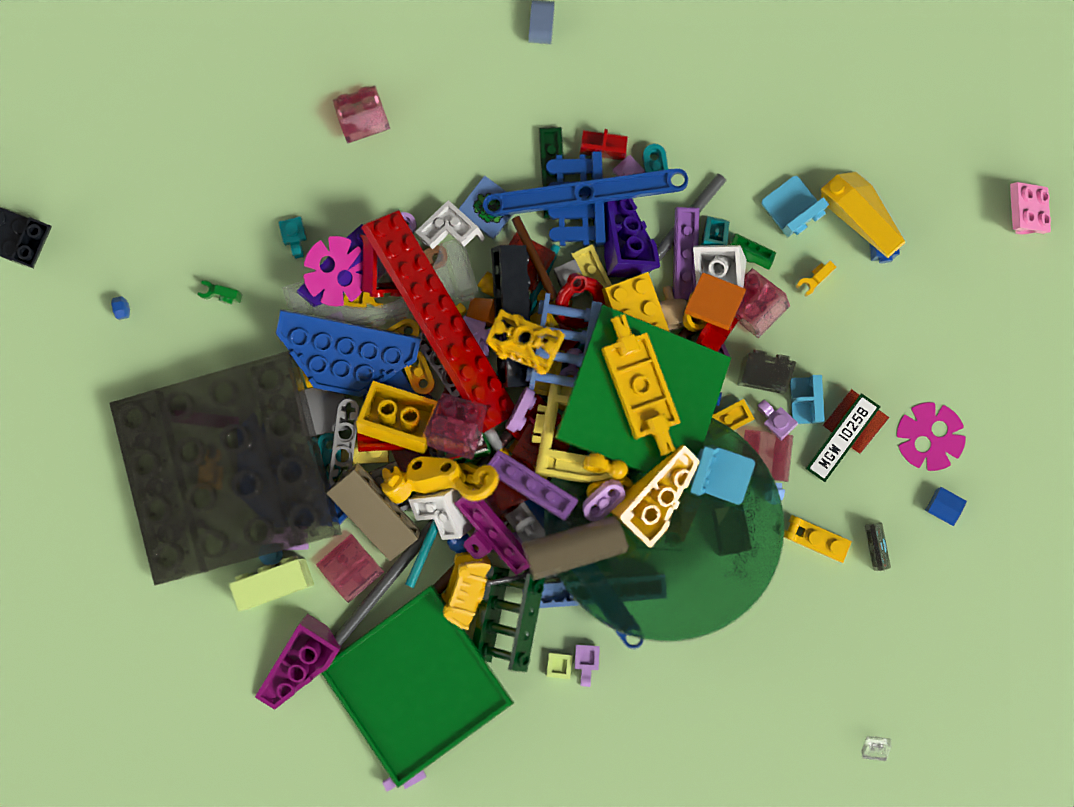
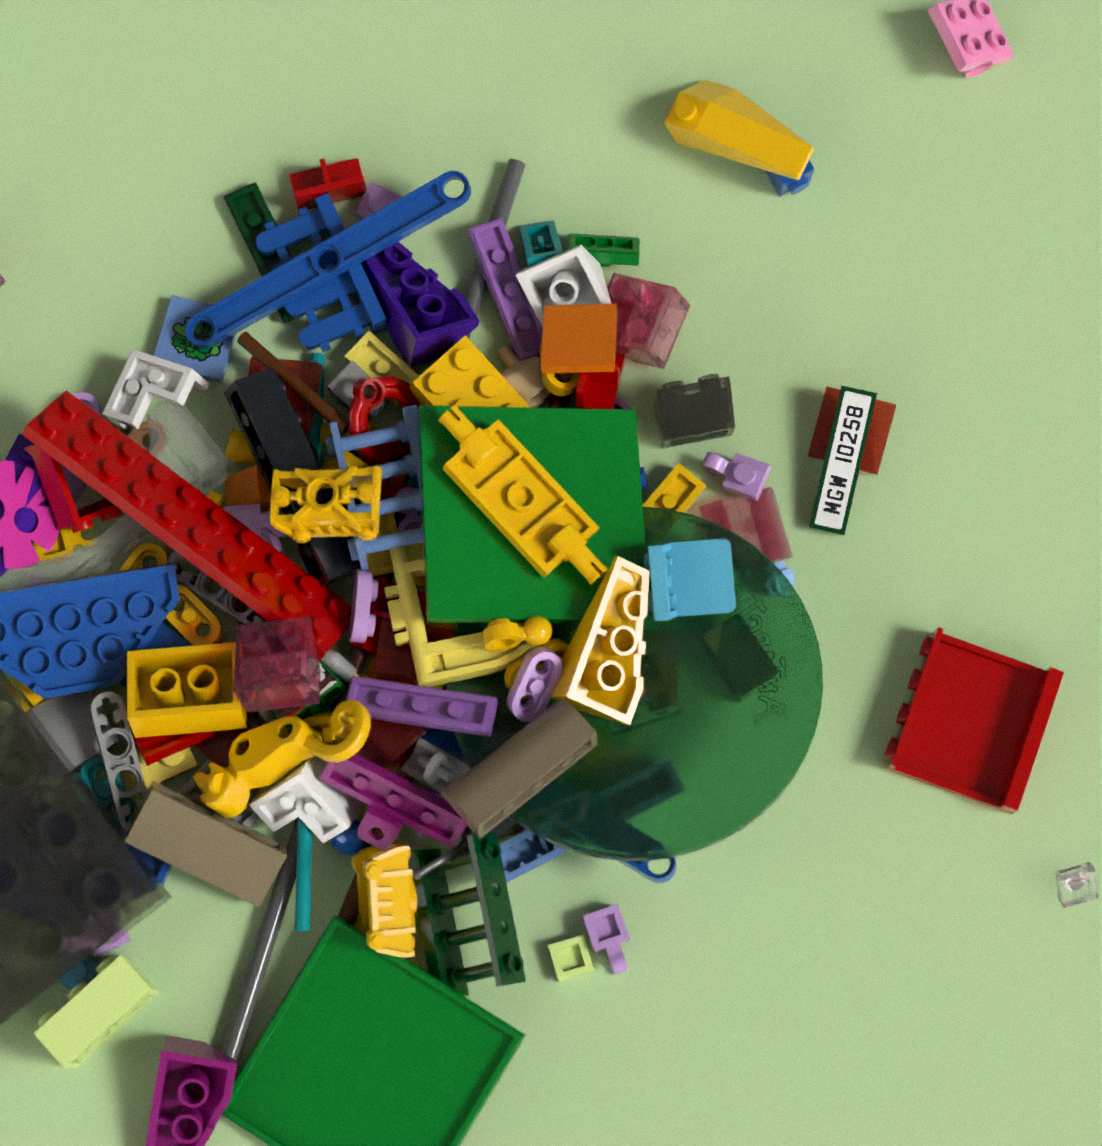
camera: 25 degrees left, 5 degrees down
(349, 568) = (203, 943): clear pink slope -> none
(541, 21) = (165, 44): sand blue beam -> none
(657, 165) = (411, 161): teal plate -> none
(793, 206) = (637, 163): medium azure bracket -> none
(807, 399) = (770, 428): medium azure panel -> none
(818, 539) = (868, 621): yellow plate -> none
(820, 274) = (714, 241): yellow plate -> none
(855, 625) = (973, 721): none -> red panel
(877, 546) = (958, 595): clear smoke slope -> none
(936, 455) = (950, 386): dark pink piece -> none
(946, 506) = (1030, 498): blue piece -> none

